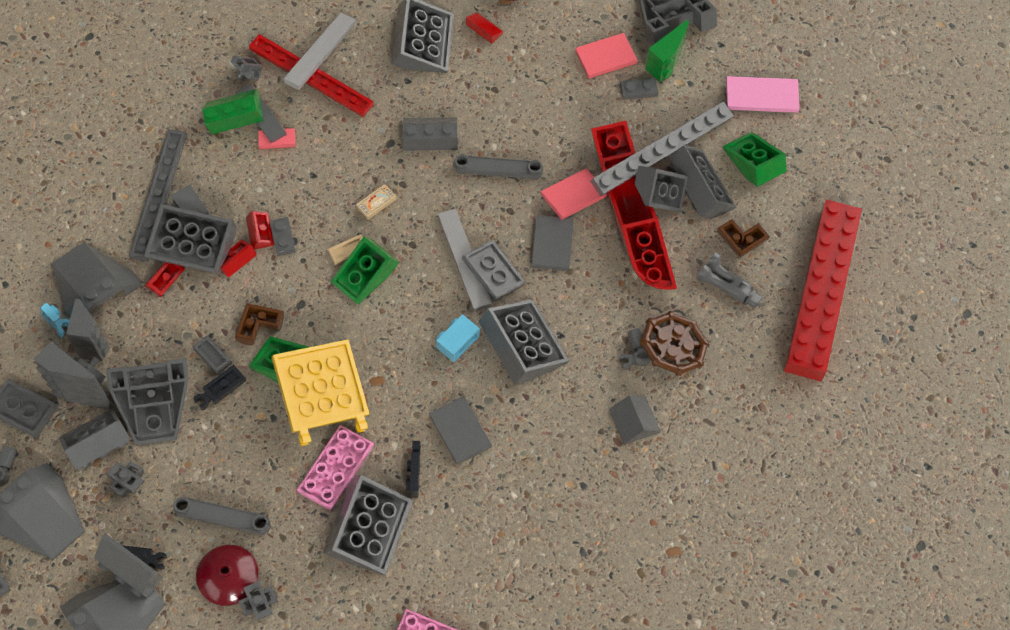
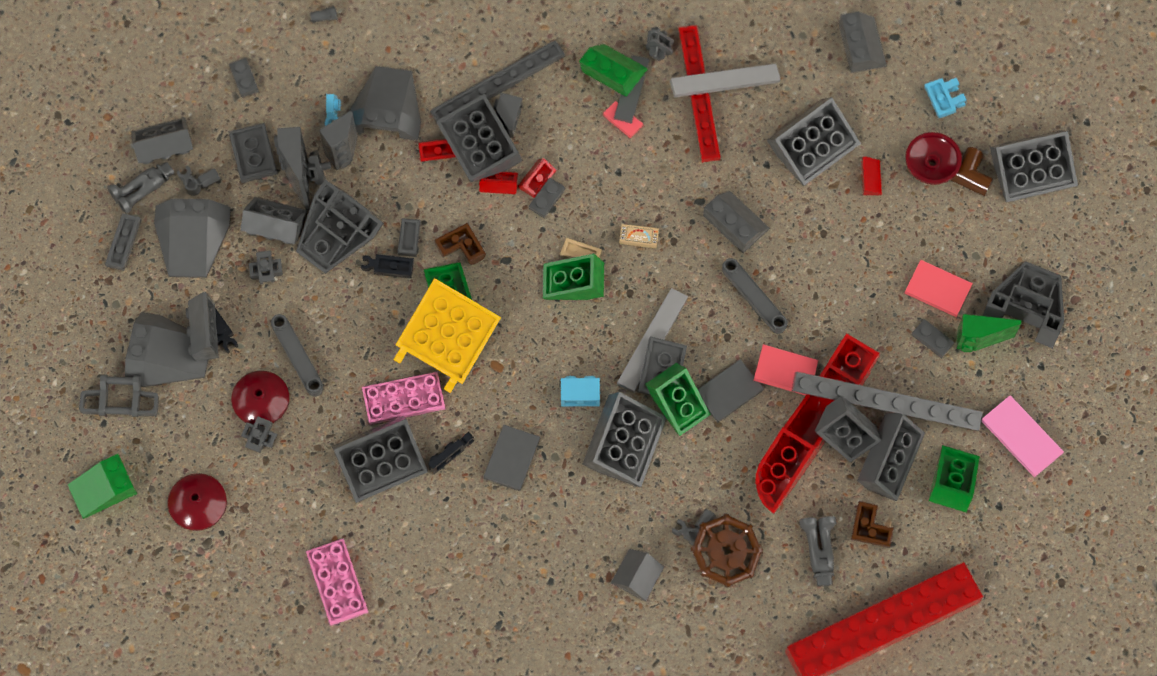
camera: 50 degrees right, 5 degrees up
(527, 276) = (678, 398): none -> green slope

